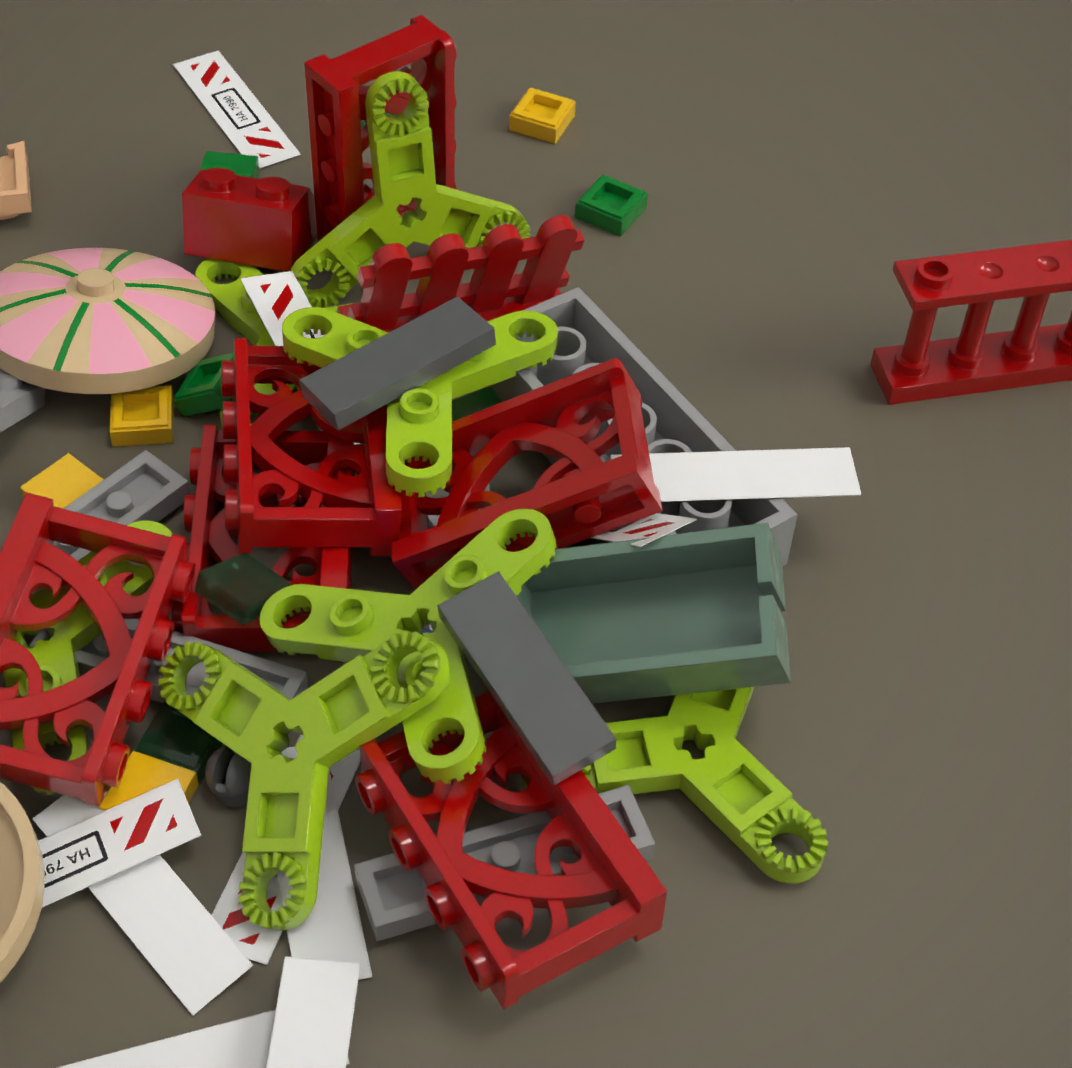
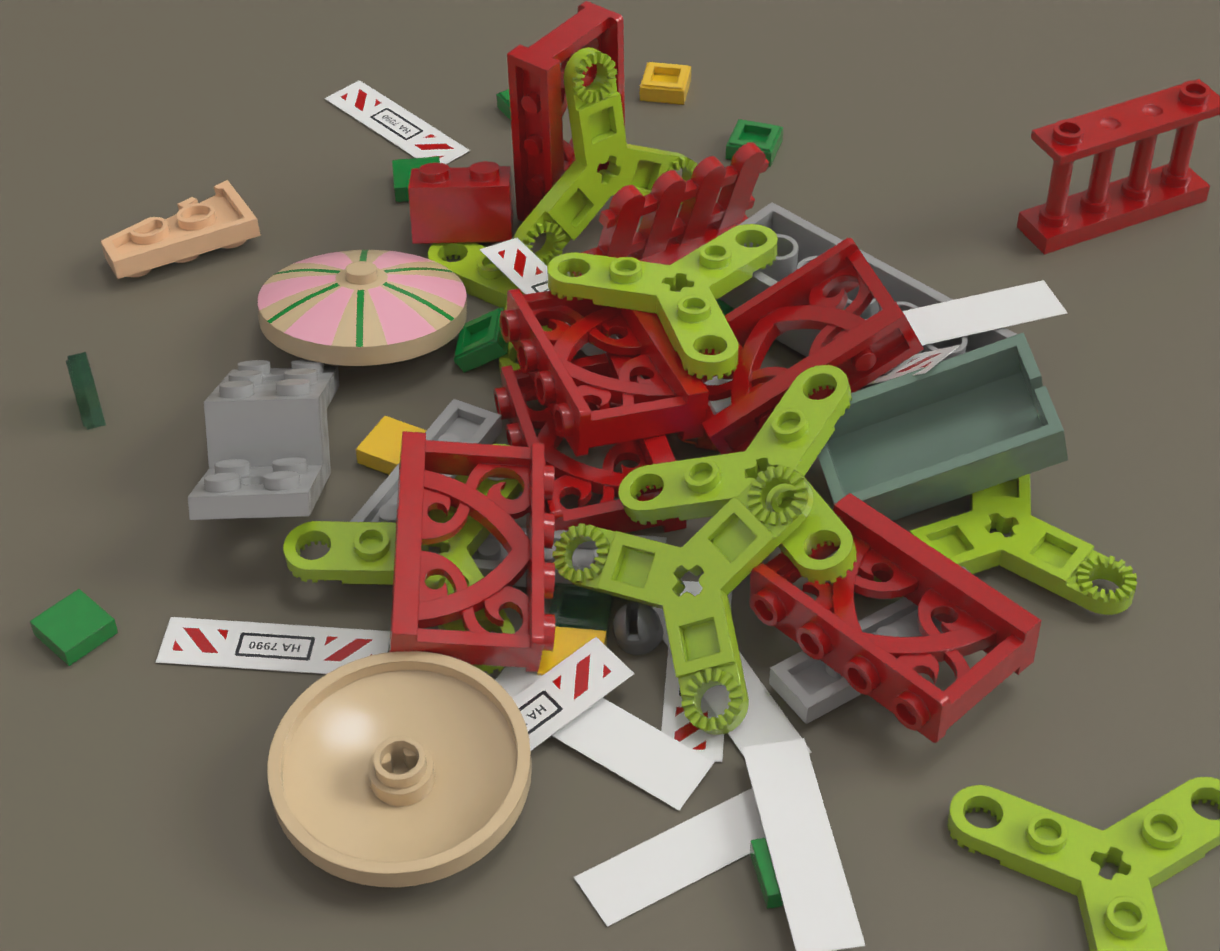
camera: 10 degrees left, 5 degrees down
(142, 417) = (431, 377): yellow tile -> none
(239, 586) = (590, 481): clear green tile -> none
(397, 363) = (663, 278): dark grey tile -> none
(526, 678) = (871, 488): dark grey tile -> none

